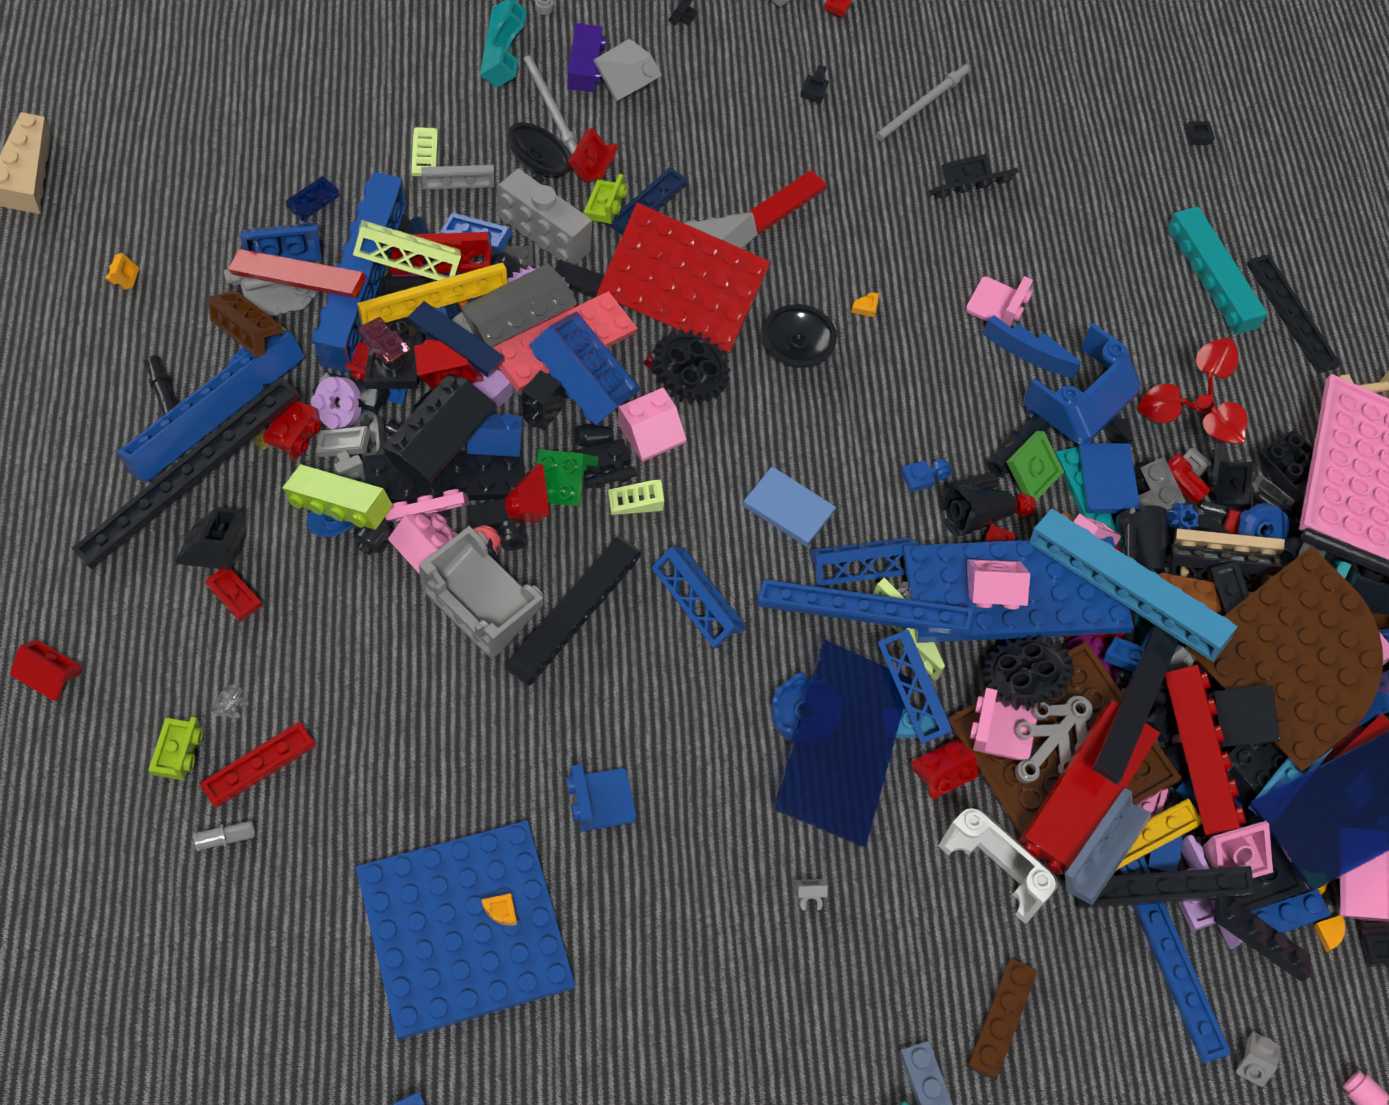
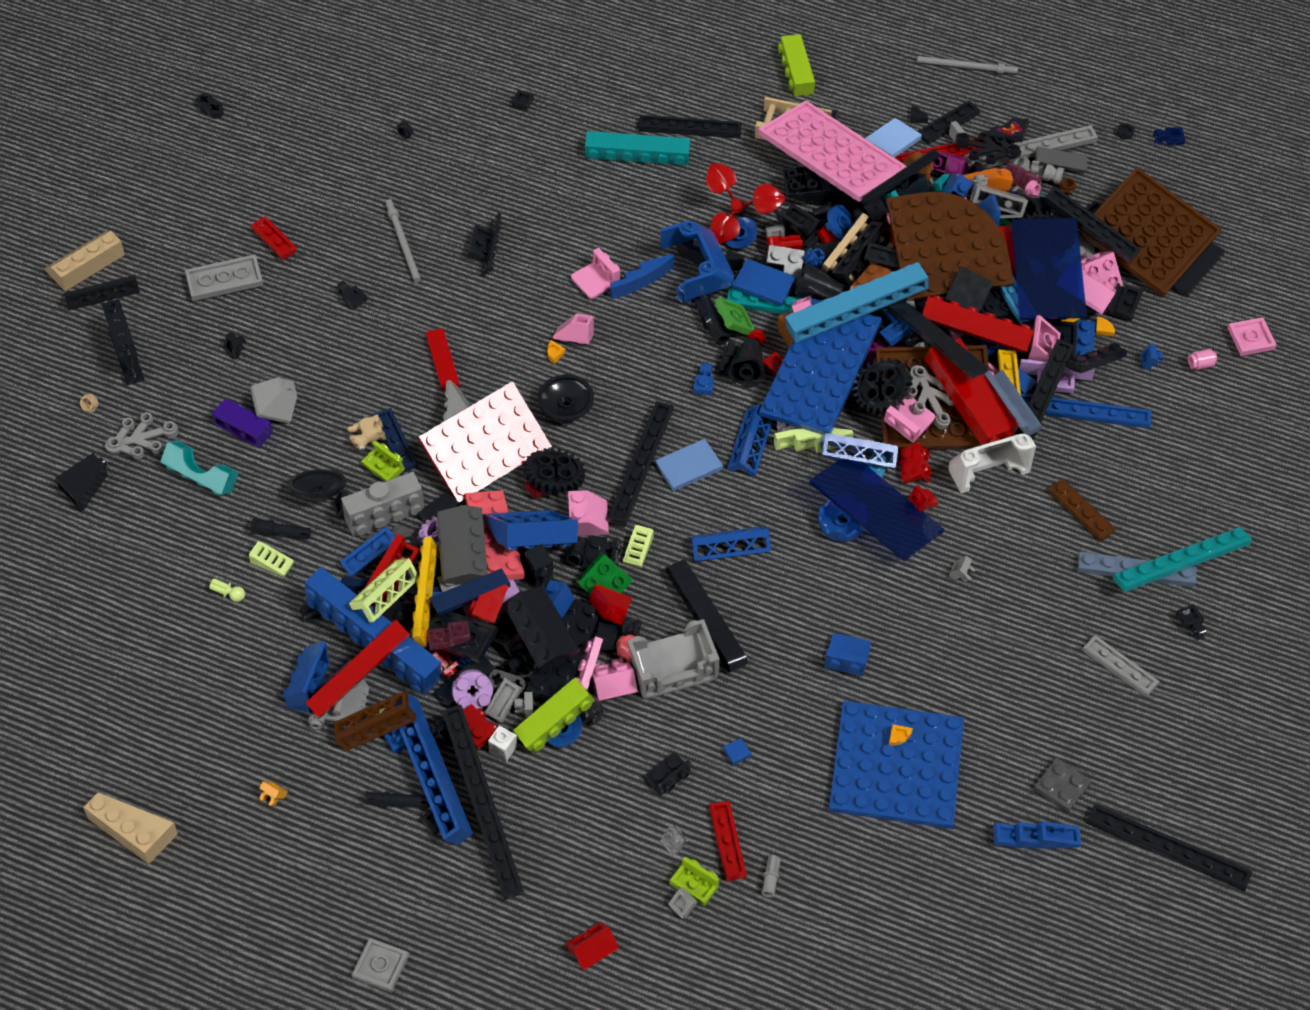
camera: 55 degrees left, 5 degrees down
(140, 746) = (682, 903): none -> light grey plate
(214, 540) = (546, 804): black slope -> none
(233, 593) = (591, 810): red plate -> none
(281, 462) = (502, 743): none -> white brick
(312, 198) = (273, 645): clear blue plate -> none
(325, 658) = (668, 773): none -> black bracket
(365, 142) = (236, 593): none -> yellowish green axle
(393, 724) = (737, 751): none -> blue tile
(457, 177) = (308, 546): light grey tile -> none
(465, 137) = (271, 528): none -> black pin
(568, 137) = (310, 464): light grey bar -> none
(592, 156) = (340, 454): red bracket -> none
(640, 169) = (371, 431): none -> tan animal
(758, 453) = (640, 464): none -> black plate
(867, 607) = (792, 452): blue tile -> none
(894, 798) = (923, 498): none -> red bracket
(907, 311) = (576, 329): none -> bright pink slope
(998, 583) = (818, 370): bright pink slope -> none
(1073, 42) = (405, 129): none -> black tile
(1169, 432) = (746, 236): none -> blue dish
(1259, 1059) = (1162, 397): light grey bracket -> none
(1272, 490) = (815, 204): sticker -> none
(1321, 1017) = (1150, 357): none -> blue tile

